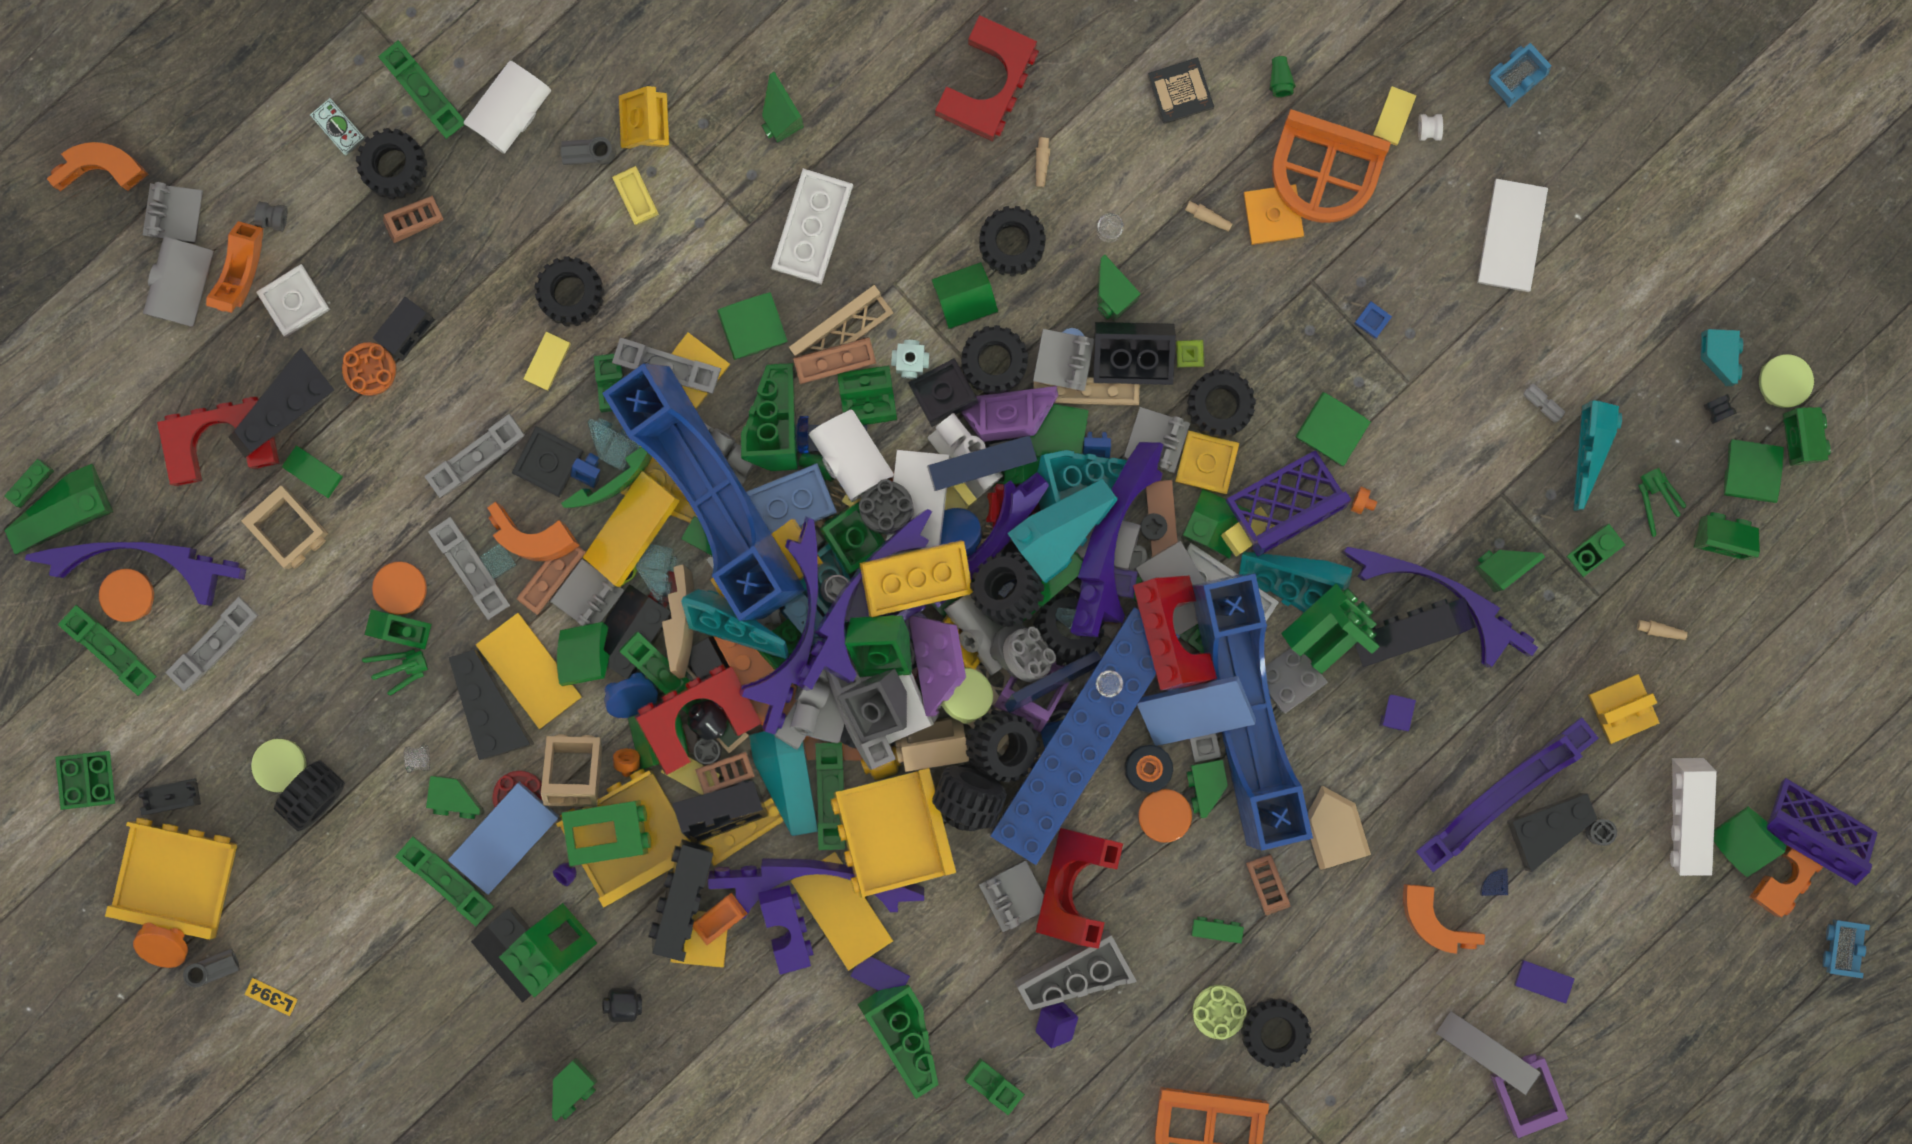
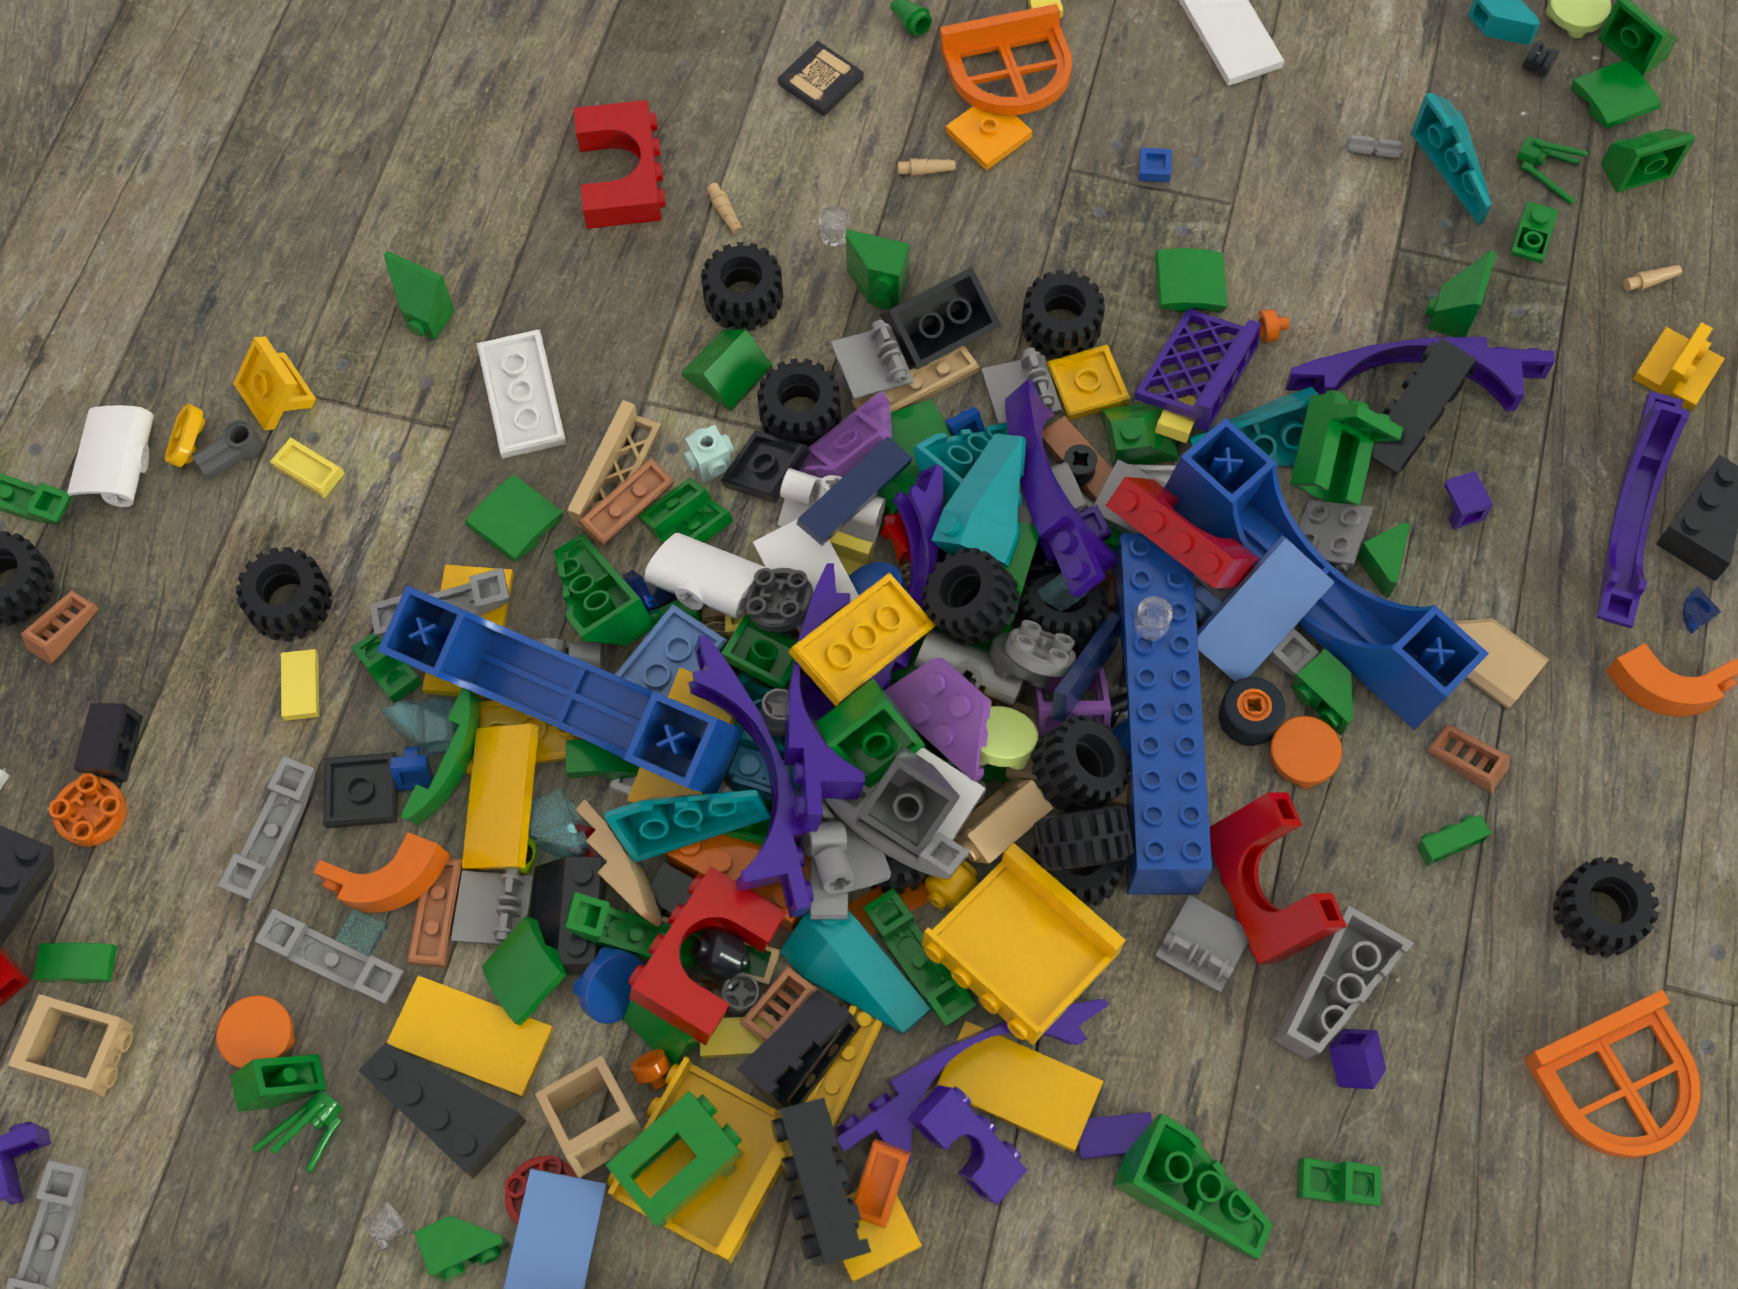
camera: 30 degrees left, 20 degrees down
(564, 121) = (183, 436): none -> yellow plate
(564, 874) = (655, 1254): dark purple hinge -> none
(1190, 353) = (999, 290): lime tile -> none
(1219, 1011) = (1523, 929): yellowish green tile -> none
(1313, 718) = (1383, 557): none -> green slope

